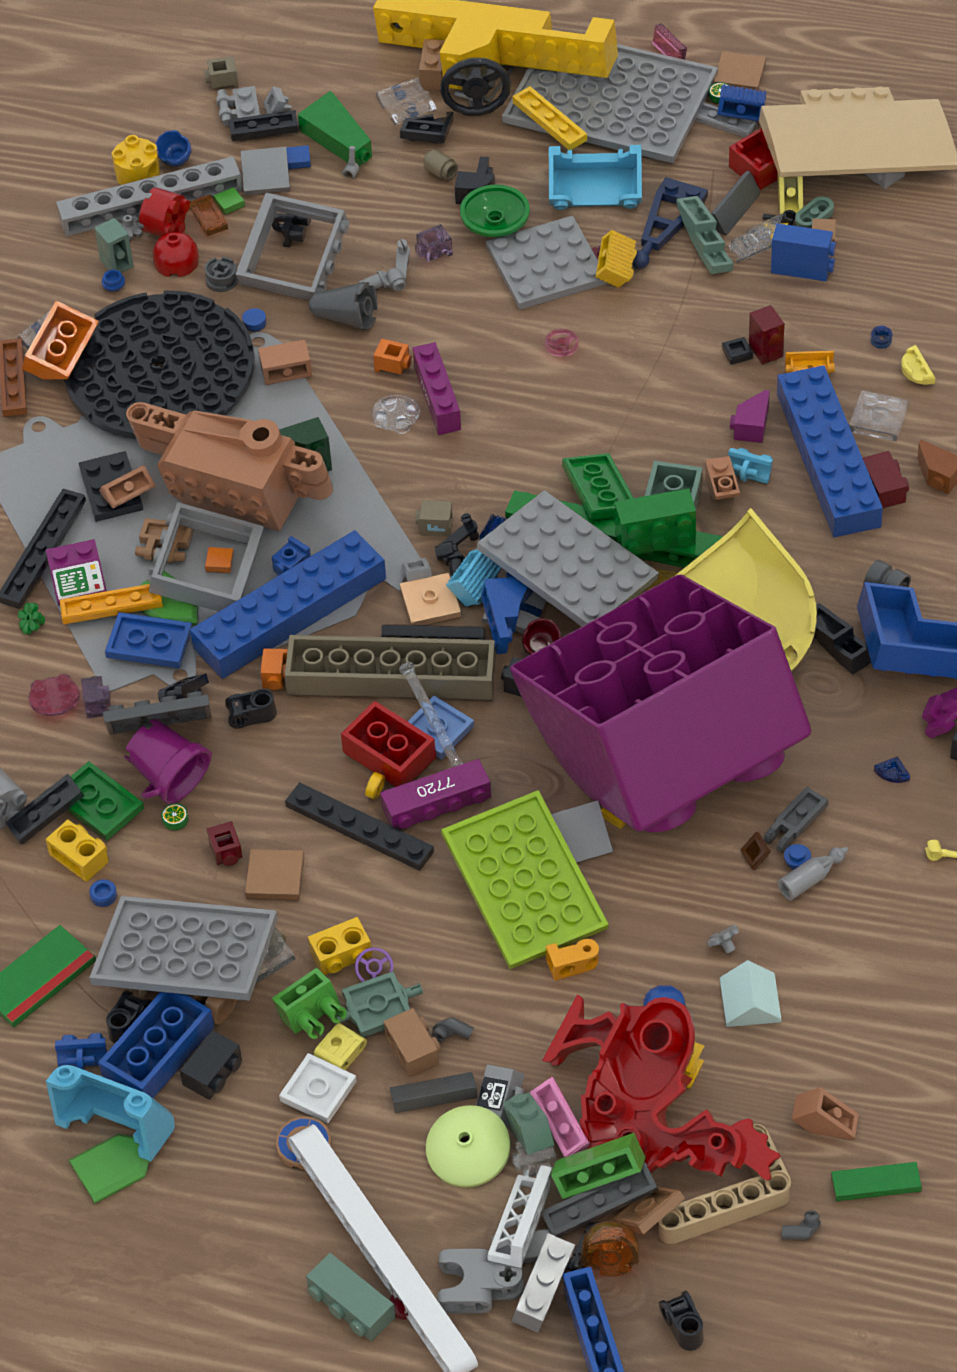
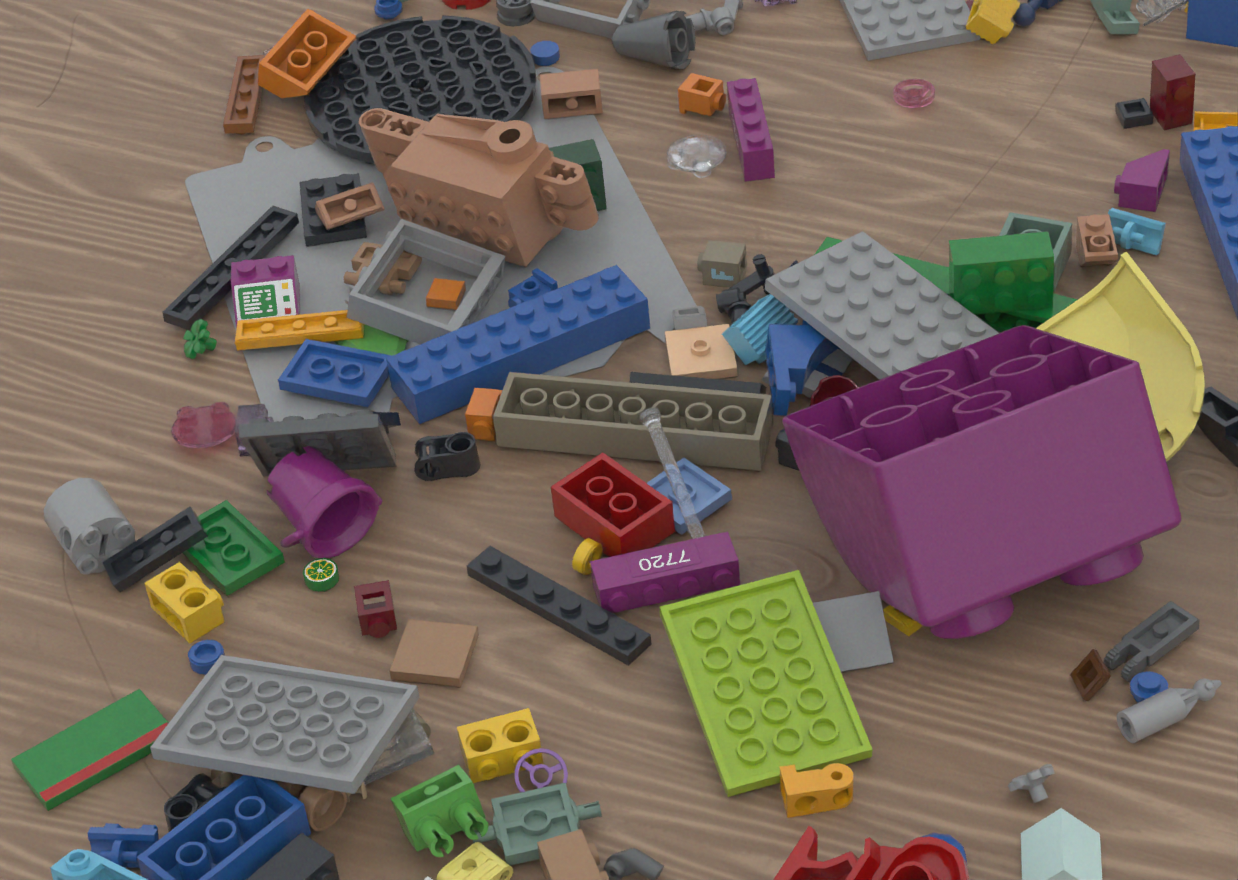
camera: 10 degrees right, 10 degrees down
(596, 483) = (928, 235): green tile -> none

